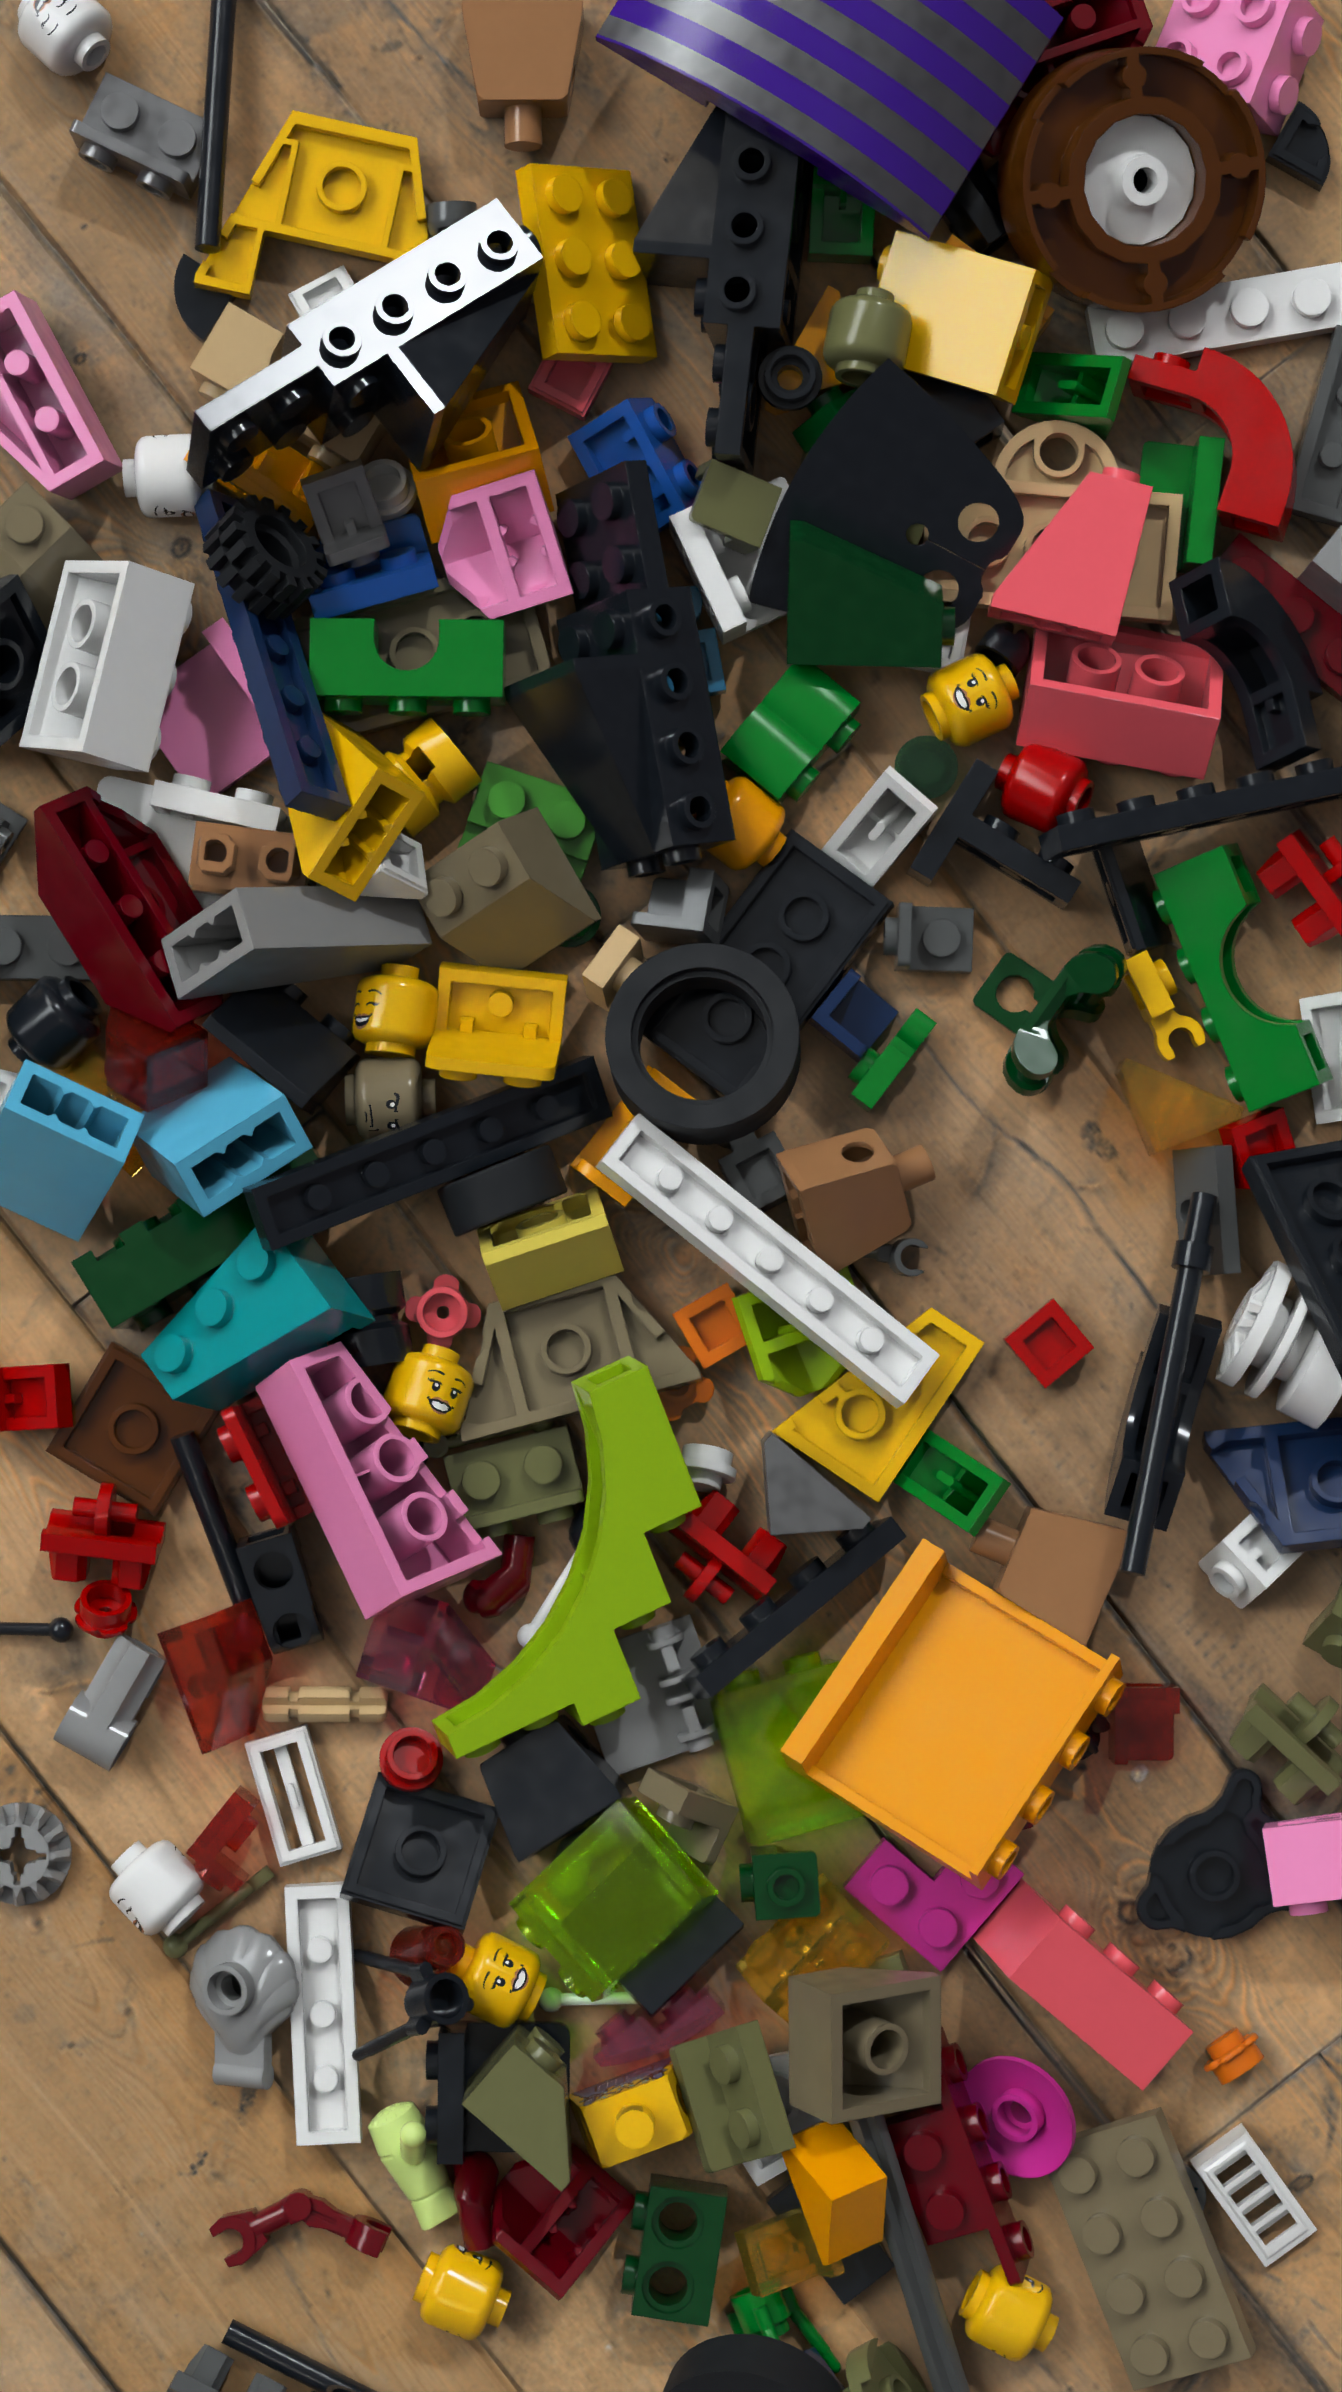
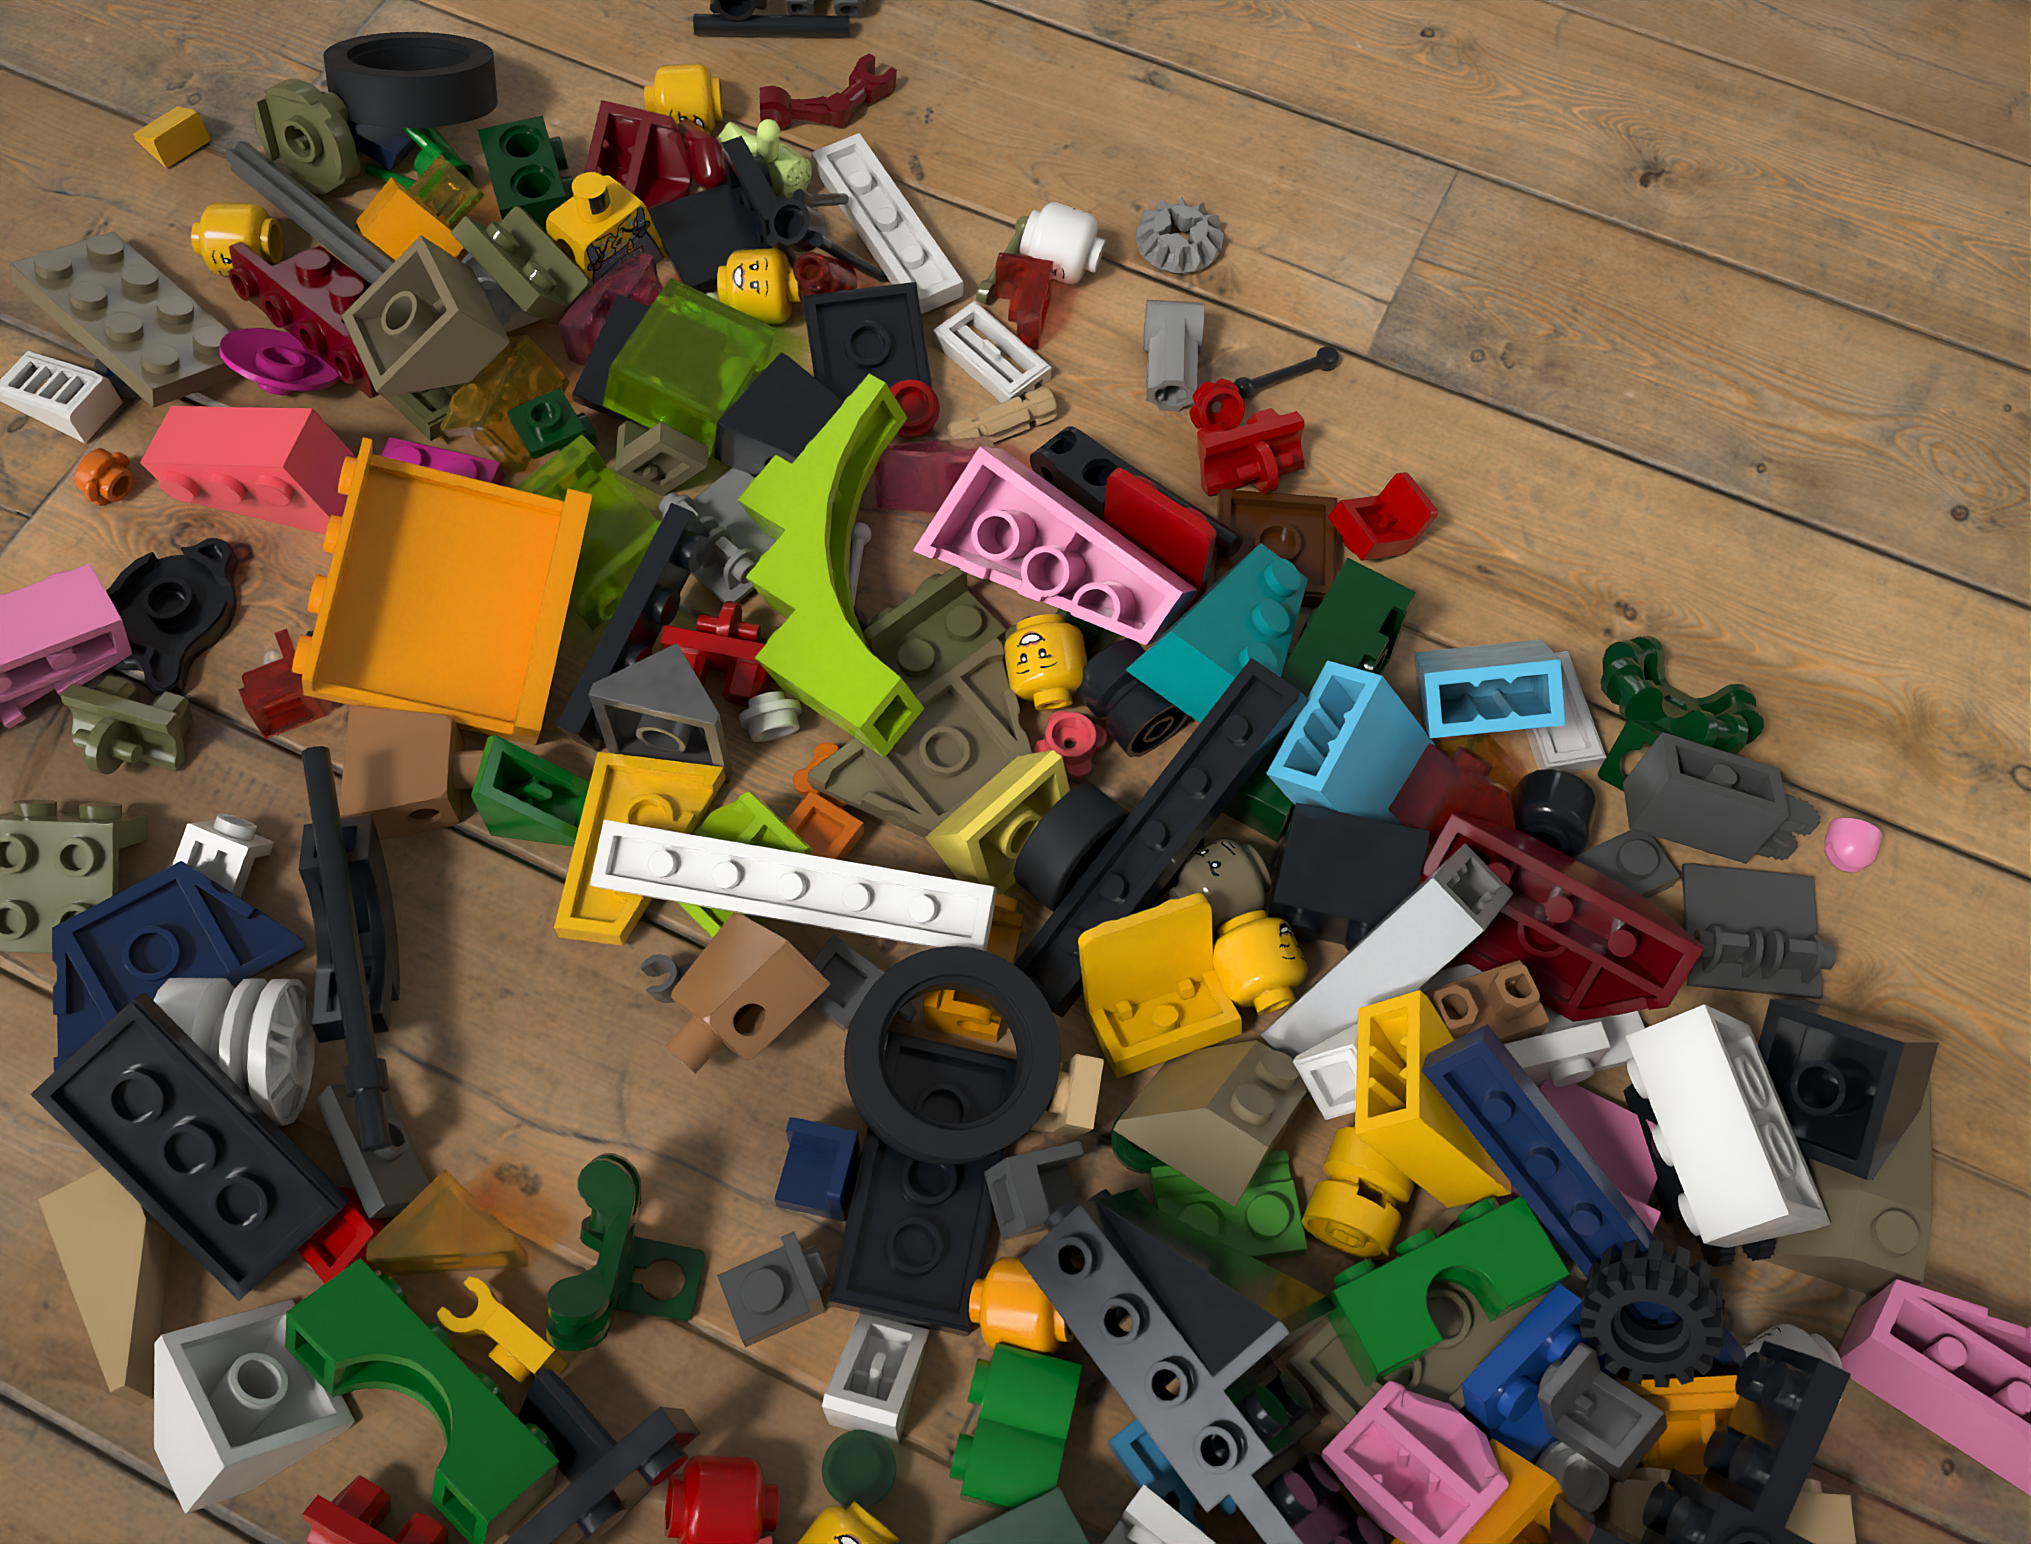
camera: 155 degrees right, 25 degrees down
(220, 1672) = (1103, 397): clear red slope -> none
(244, 1993) = (951, 205): light grey animal -> none
(506, 1585) = (898, 563): dark red arm -> none
(526, 2100) = (690, 192): olive slope -> none
(877, 1071) = (760, 1143): green plate -> none
(992, 843) = (757, 1417): black bracket -> none
(1048, 1343) = (492, 959): red plate -> none

